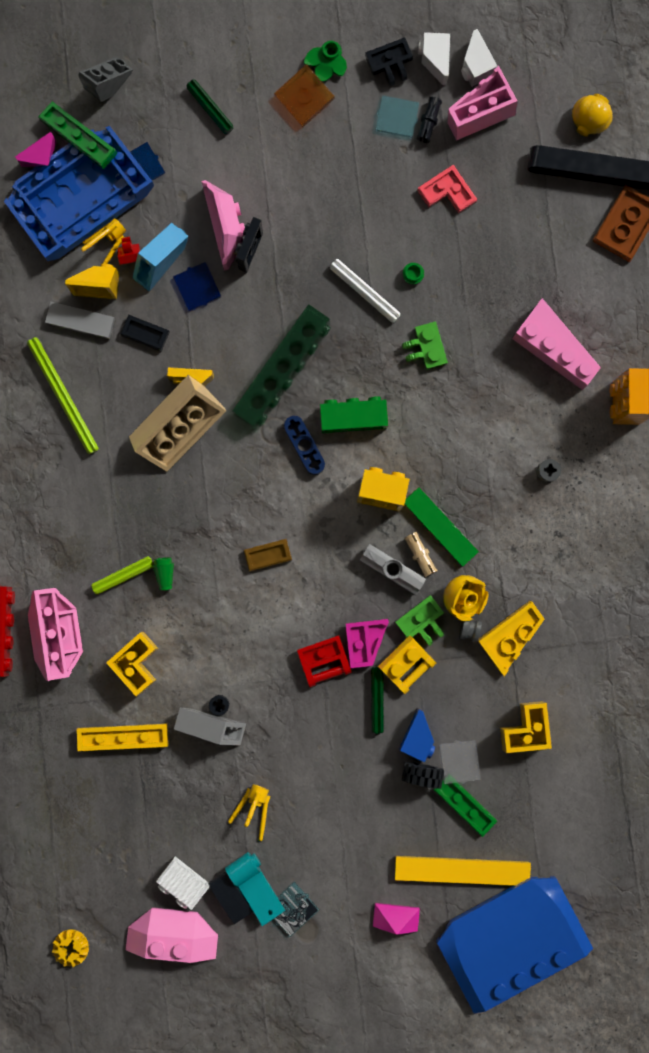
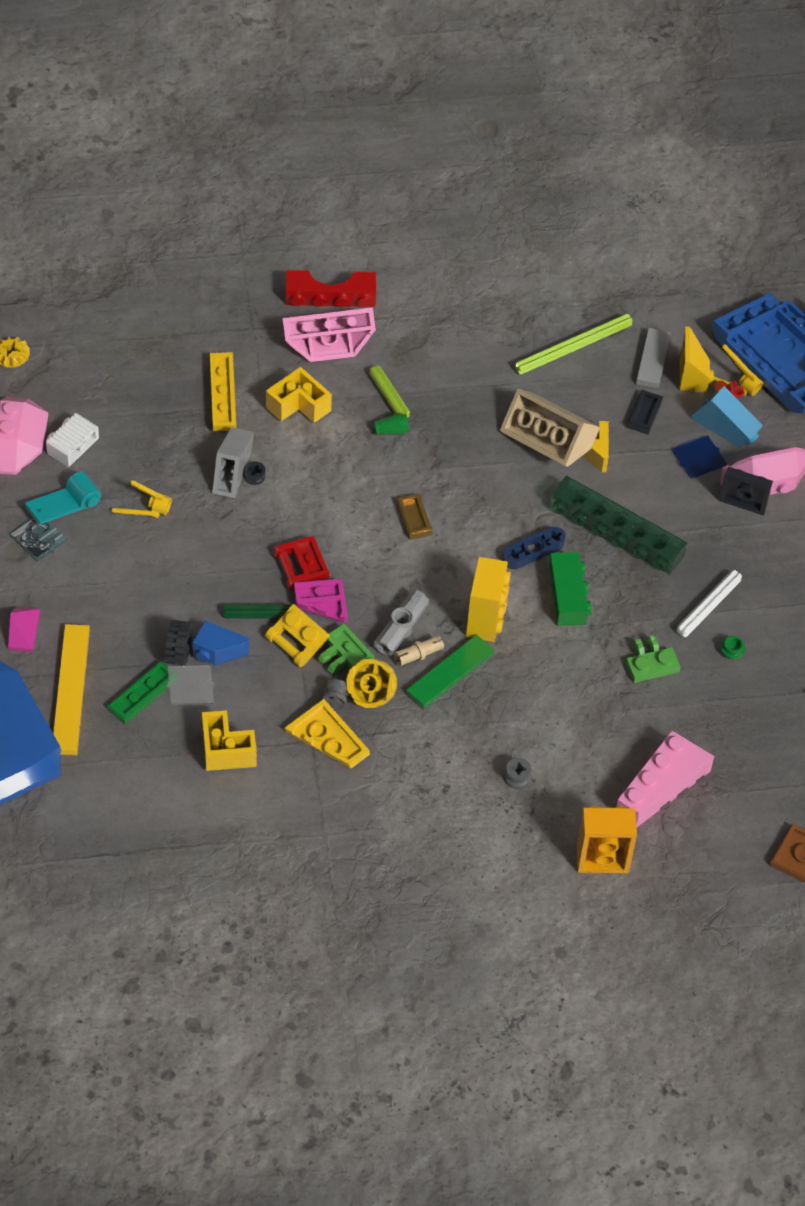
camera: 90 degrees right, 30 degrees down
(230, 898) = (52, 479): black slope -> none

